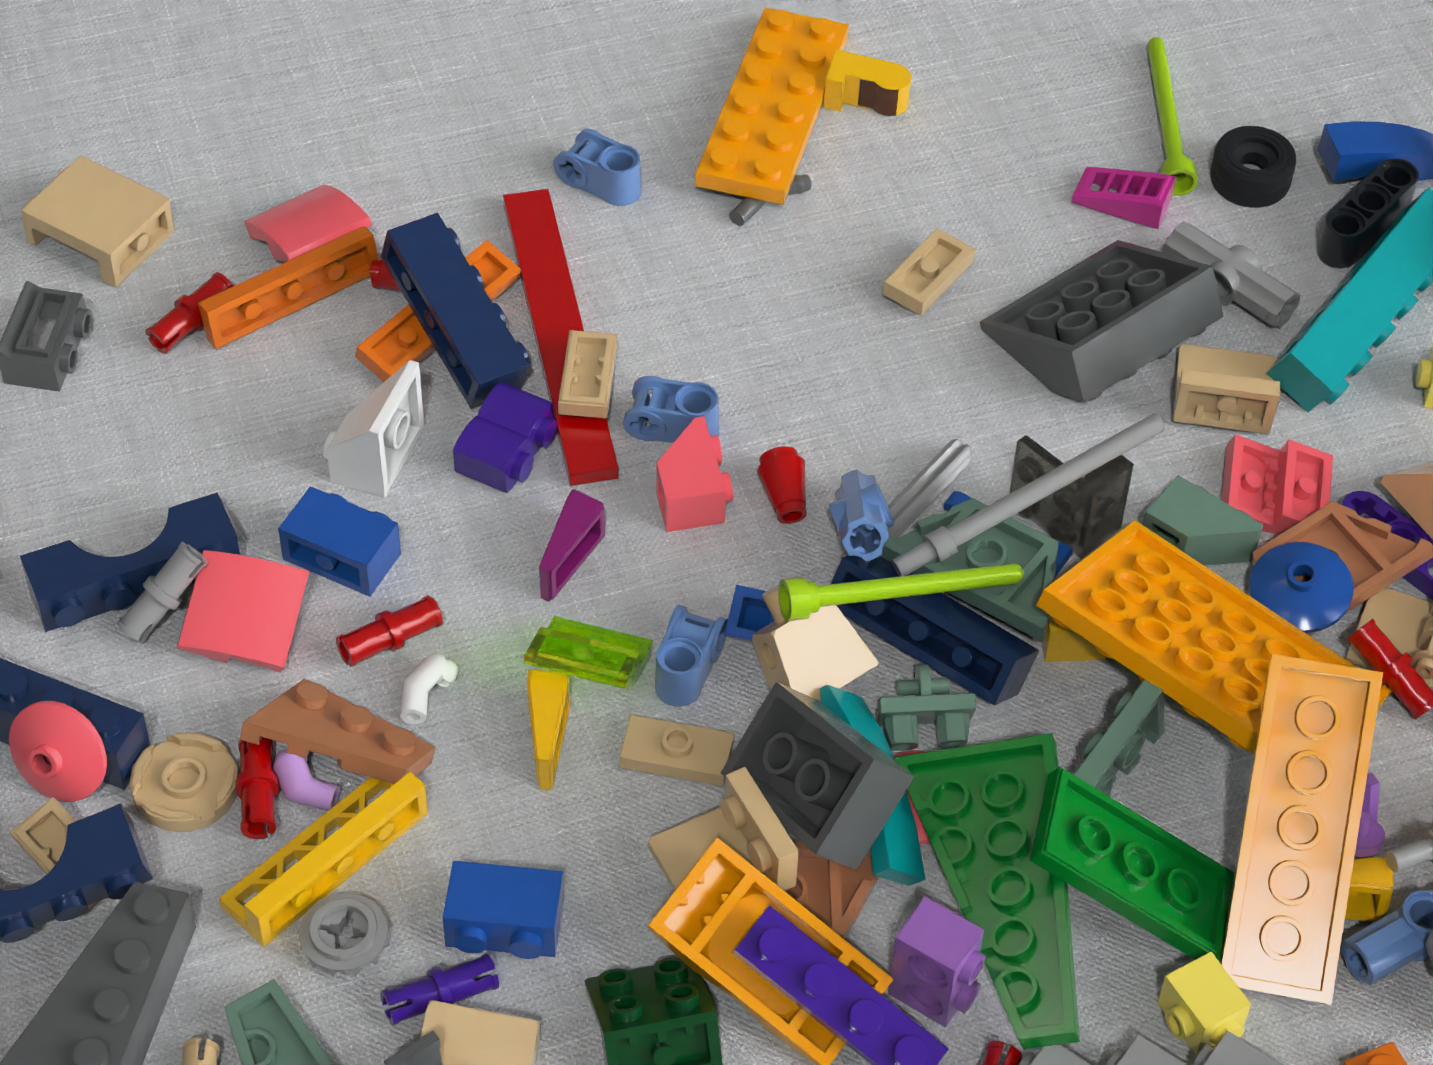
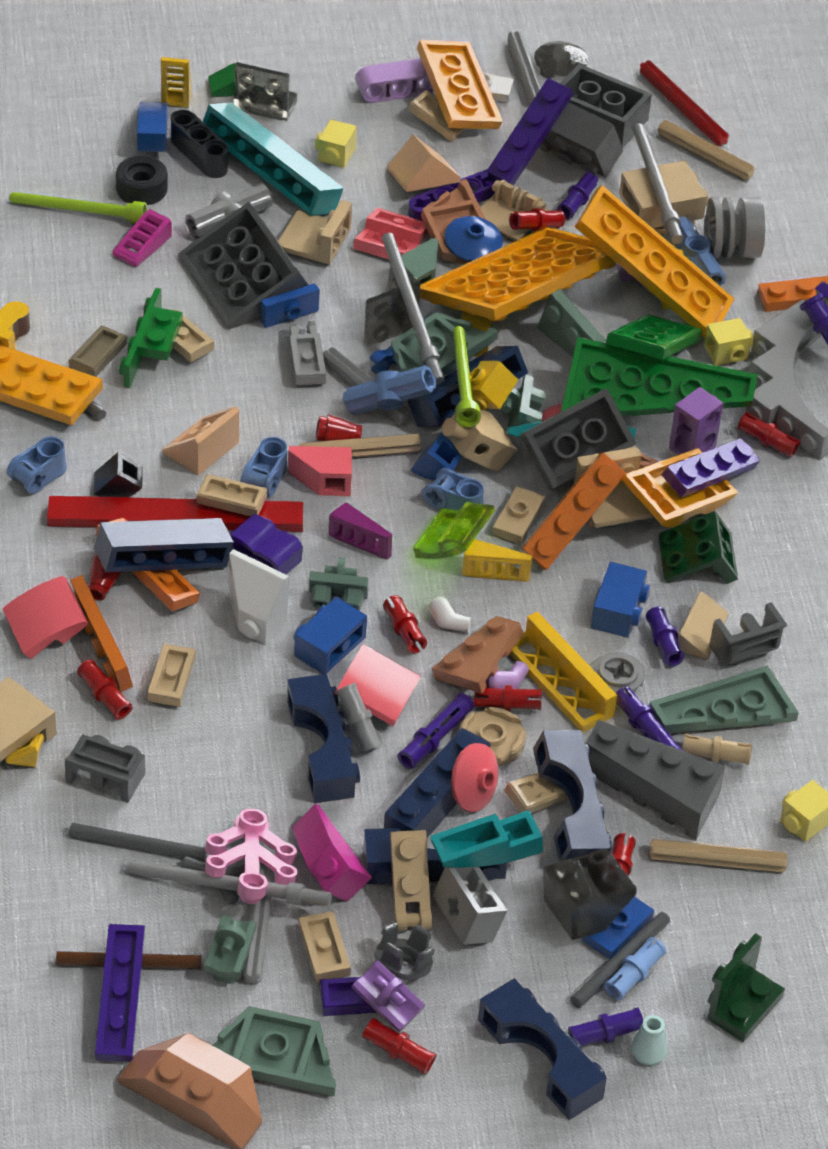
camera: 80 degrees left, 5 degrees down
(61, 257) = (28, 753): none -> yellow slope
(123, 681) = (414, 752): none -> dark purple pin
(230, 378) = (171, 675): none -> tan plate
(243, 977) = (642, 717): none -> dark purple pin
(451, 534) = (338, 582): none -> sand green hips
(602, 253) = (118, 477): none -> black brick
(657, 798) = (573, 511): none -> orange plate
(708, 335) = (205, 440): none -> light nougat slope
(760, 514) = (375, 445): none -> tan axle
(867, 191) = (98, 351): none -> dark tan tile
(903, 230) = (153, 337): none -> green bracket
(909, 637) = (491, 384): none -> yellow brick
(951, 416) = (307, 355): none -> light grey hinge
(1042, 380) = (290, 305): none -> blue plate

